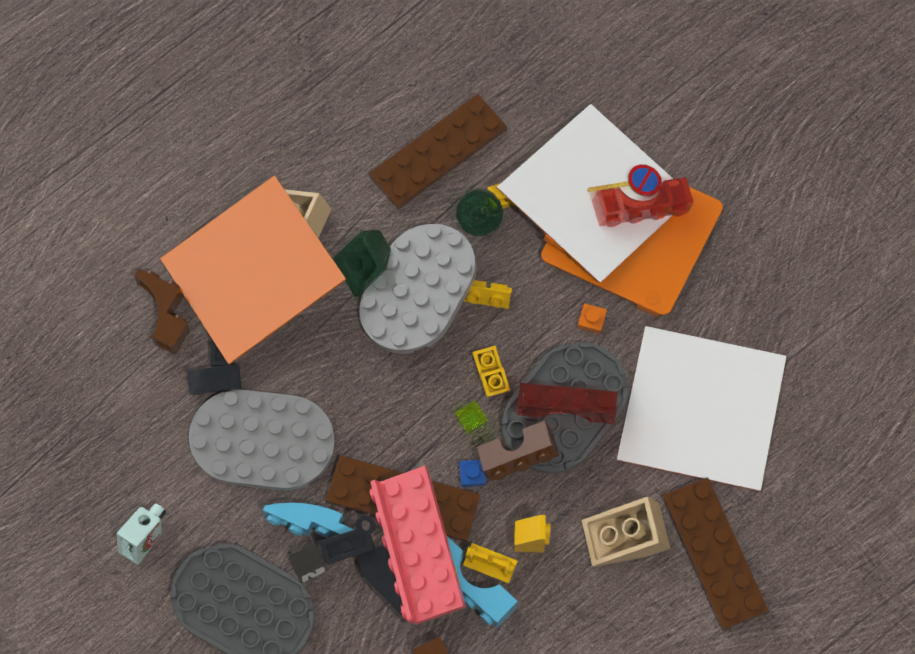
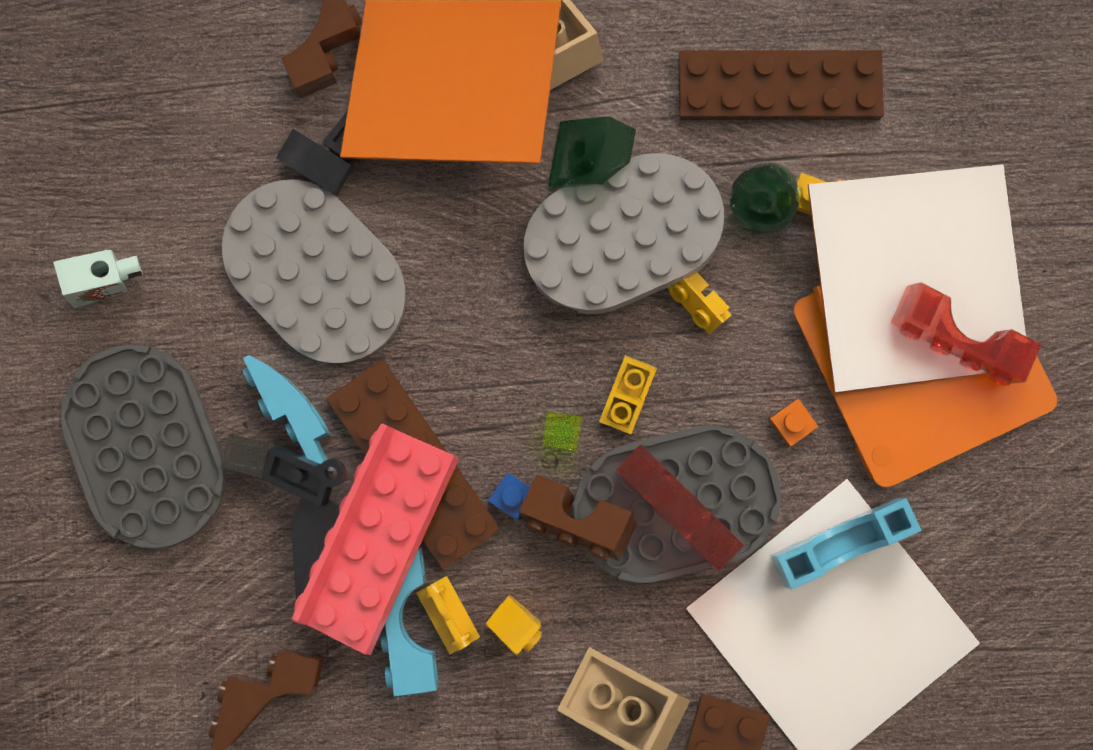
camera: 40 degrees right, 15 degrees up
(641, 179) = (987, 305): piece -> none
(670, 355) = (847, 540): none -> medium azure arch

